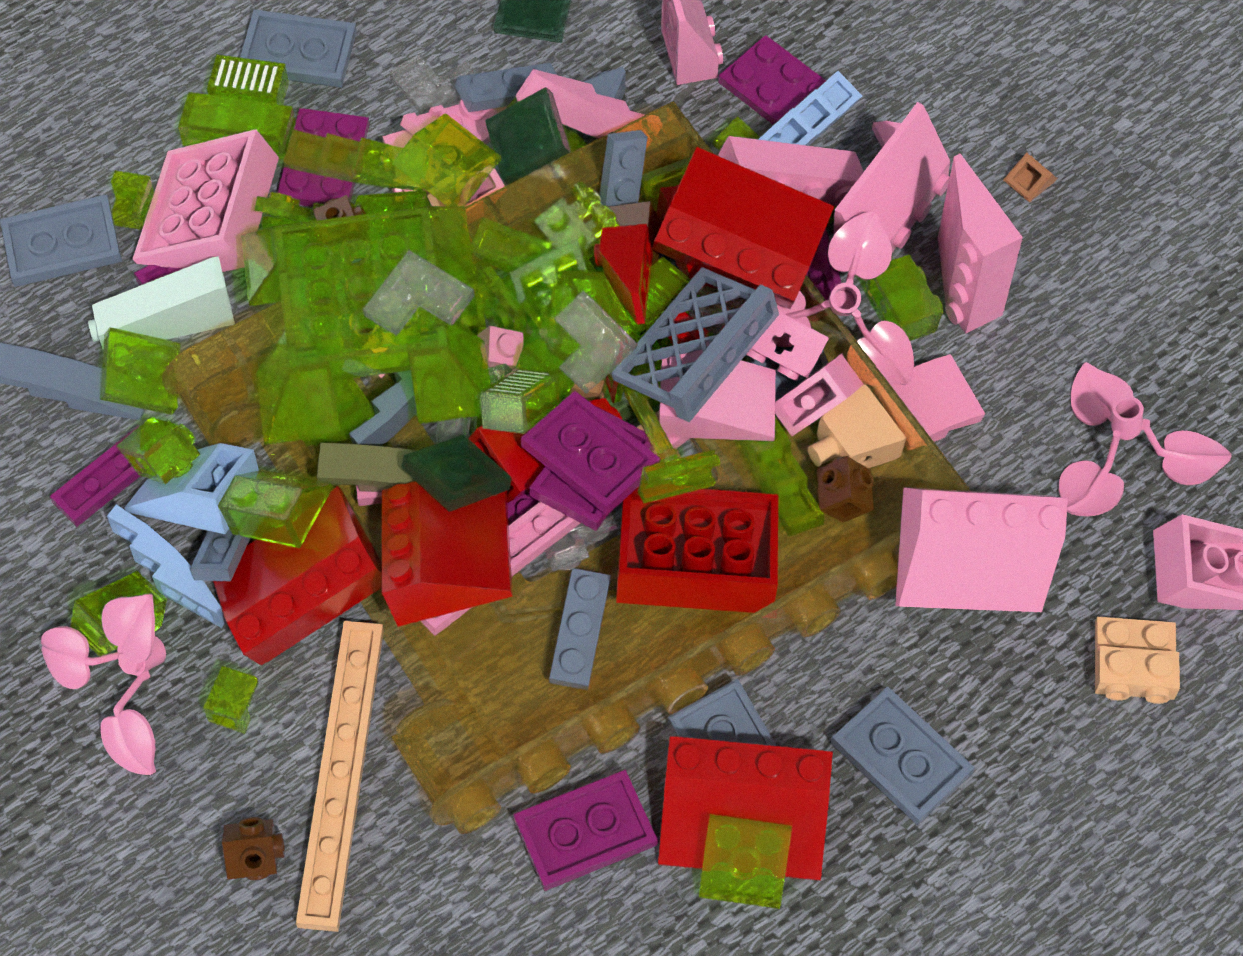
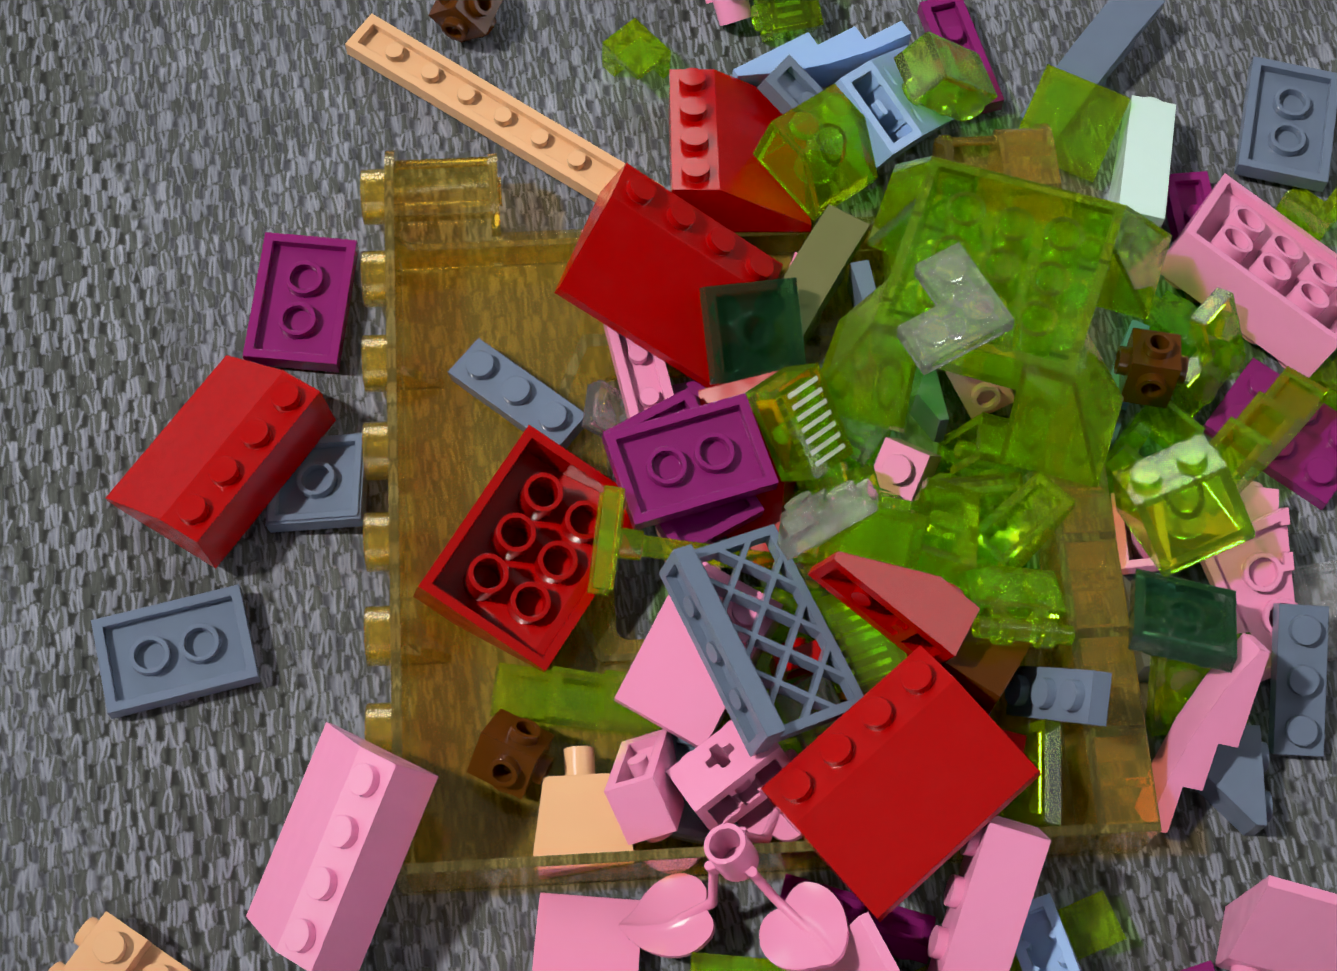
camera: 115 degrees right, 5 degrees up
(745, 861) = (161, 419): clear neon green plate -> none

